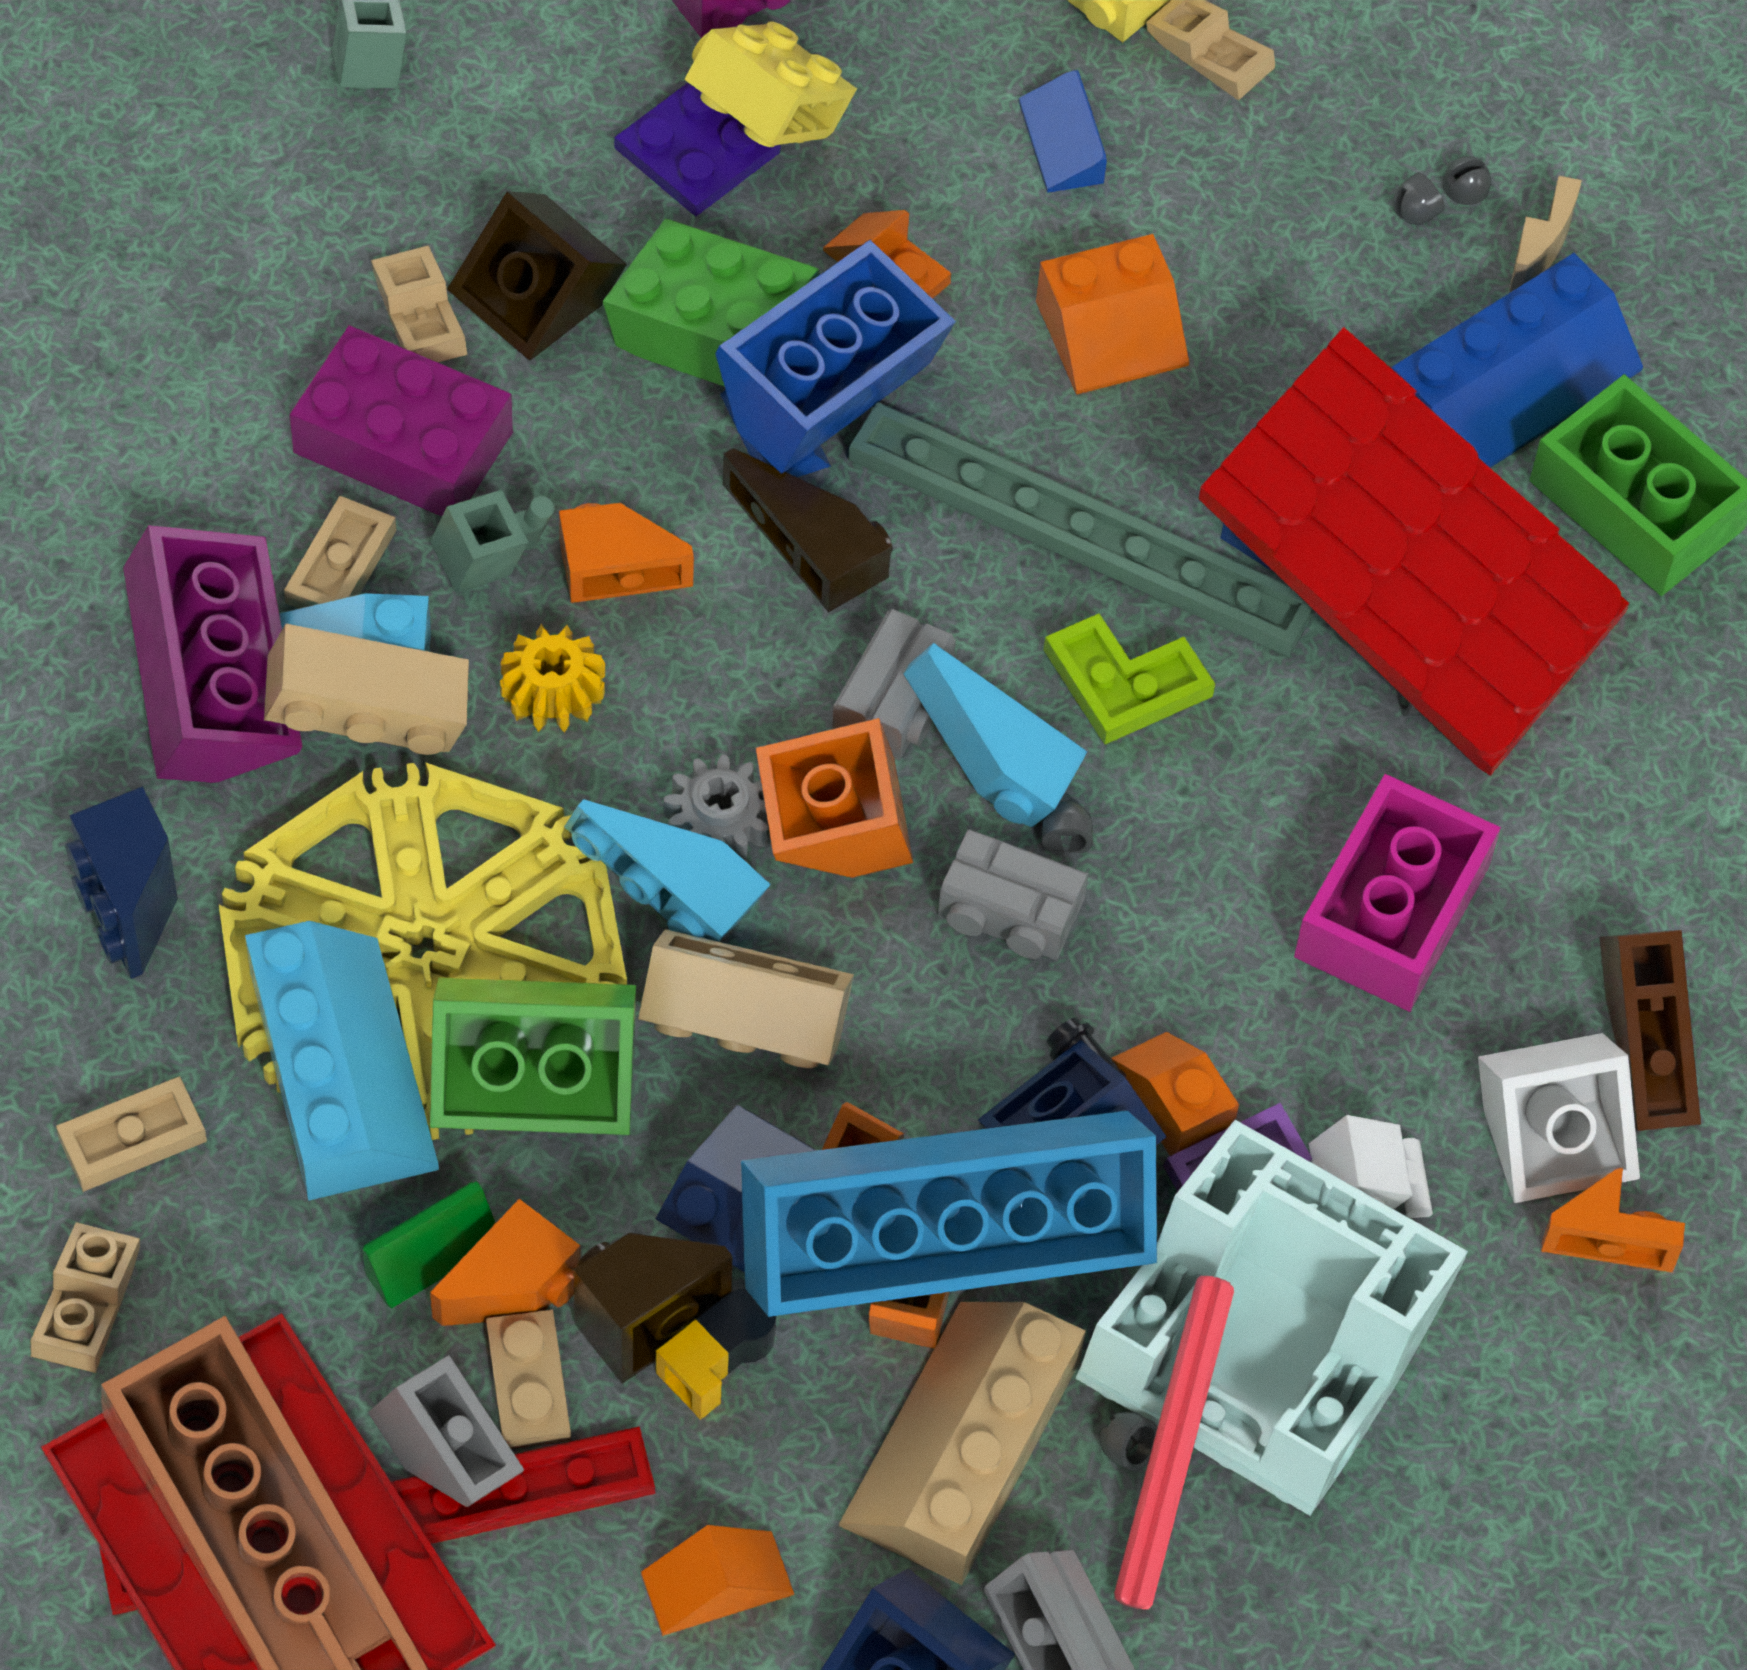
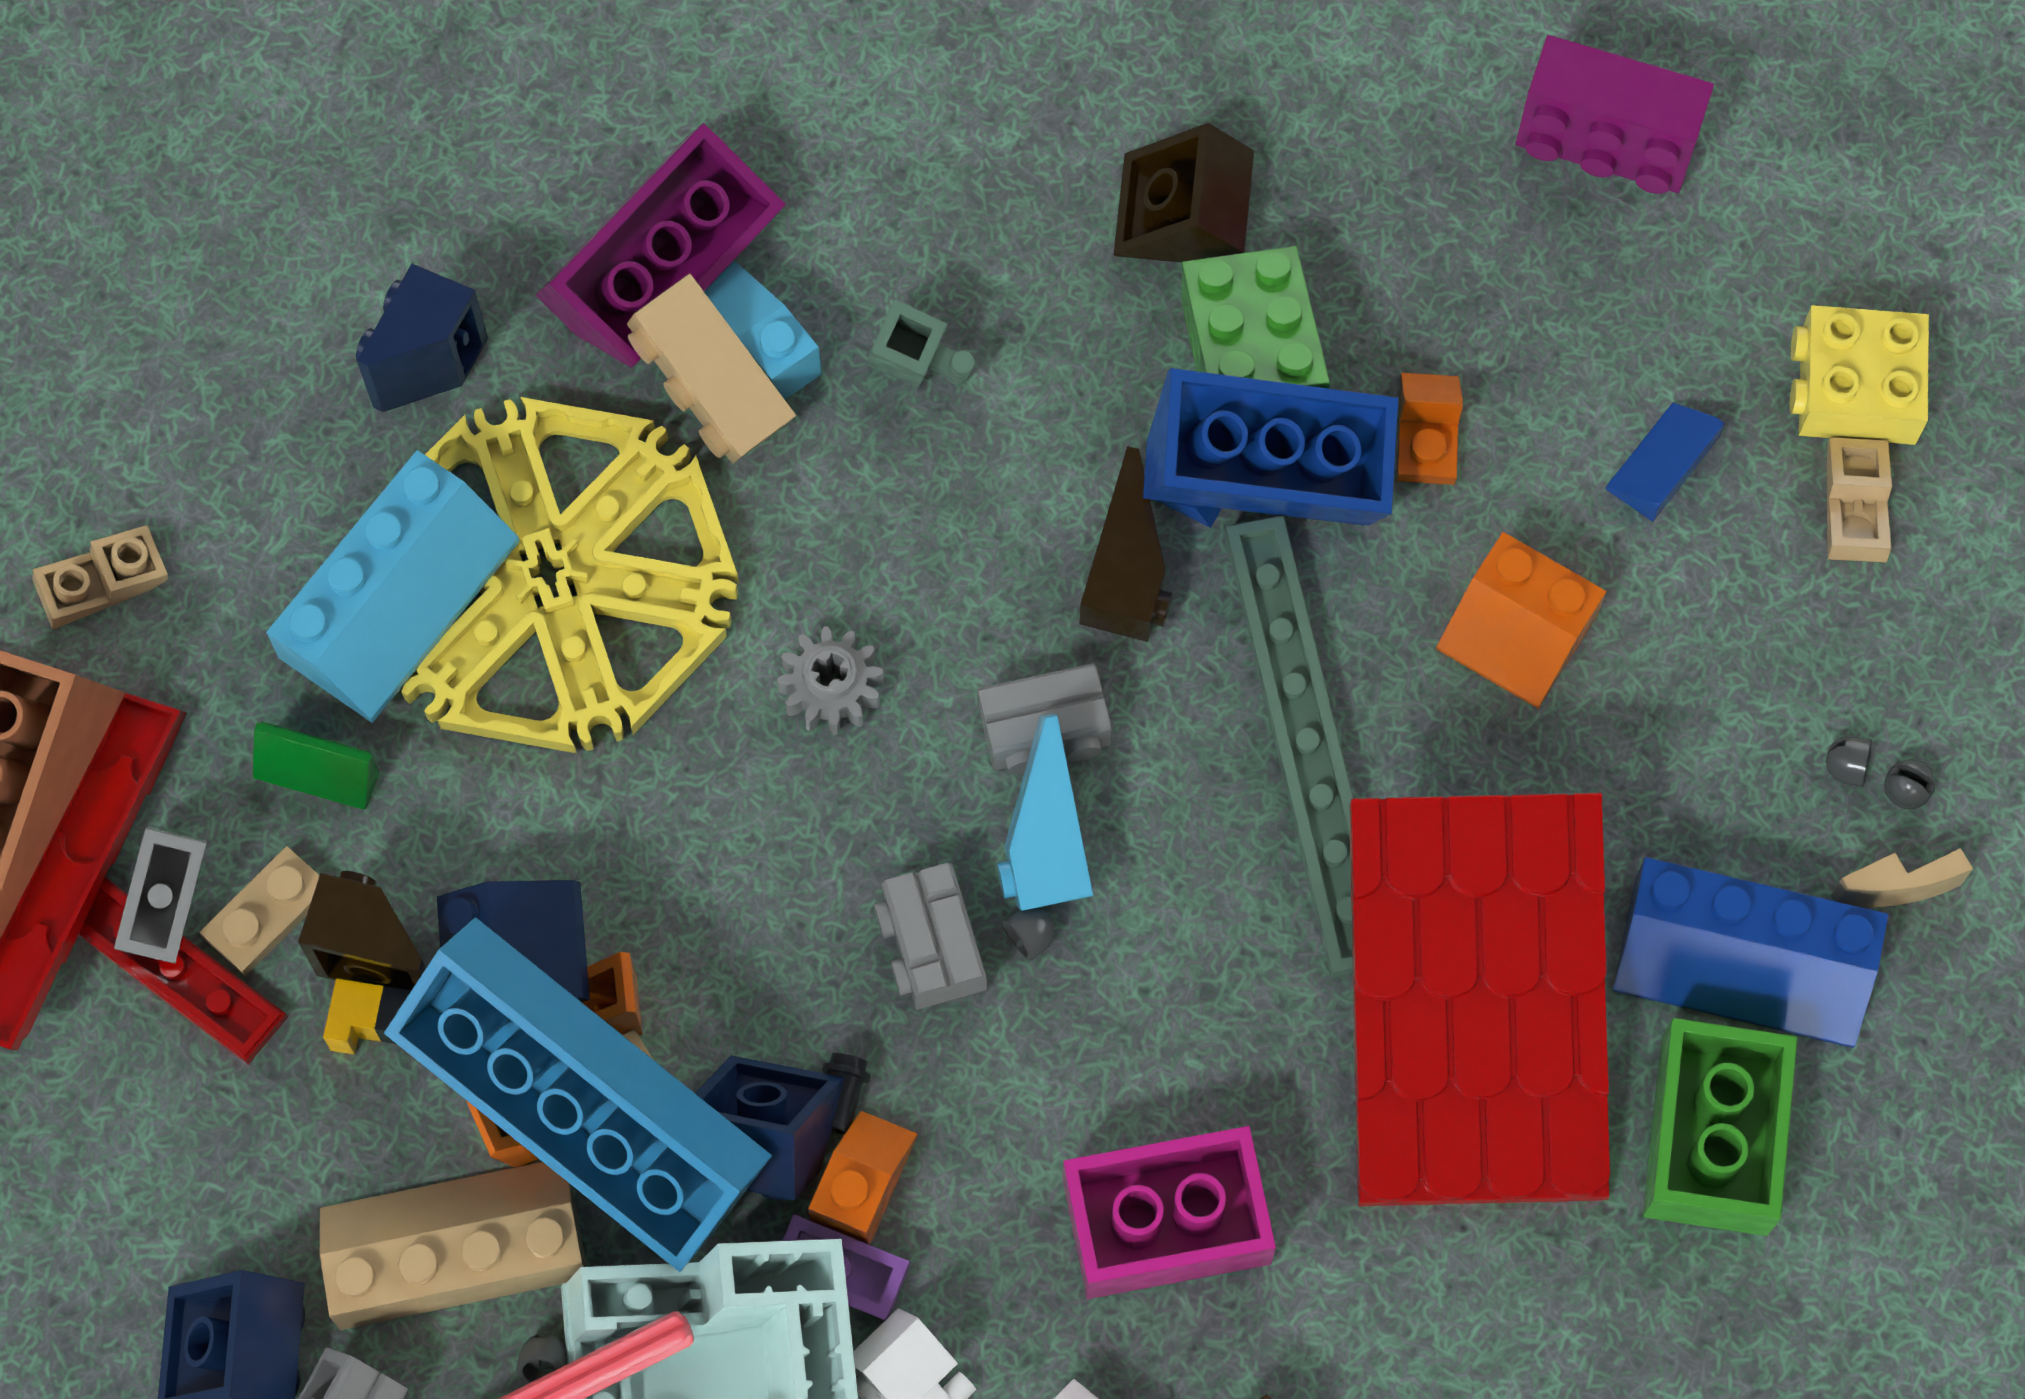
camera: 55 degrees right, 10 degrees up
(131, 1133) = (244, 504): tan plate -> none
(341, 555) = (822, 267): tan plate -> none
(401, 422) = (967, 215): magenta brick -> none
(419, 304) = (1089, 148): tan slope -> none
(509, 1271) = (332, 829): orange slope -> none
(532, 1056) = (501, 711): bright green slope -> none
(552, 678) = (865, 489): yellow gear -> none
(620, 553) = (985, 440): orange slope -> none
(680, 873) = (745, 705): medium azure slope -> none
(692, 149) = (1410, 217): dark purple plate -> none
(715, 1576) = (210, 1159): orange slope -> none
(745, 999) = (679, 818): tan brick -> none
(769, 83) = (1492, 221): light yellow brick -> none
(835, 801) = (898, 754): orange slope -> none
(1122, 692) = (1187, 885): lime plate -> none

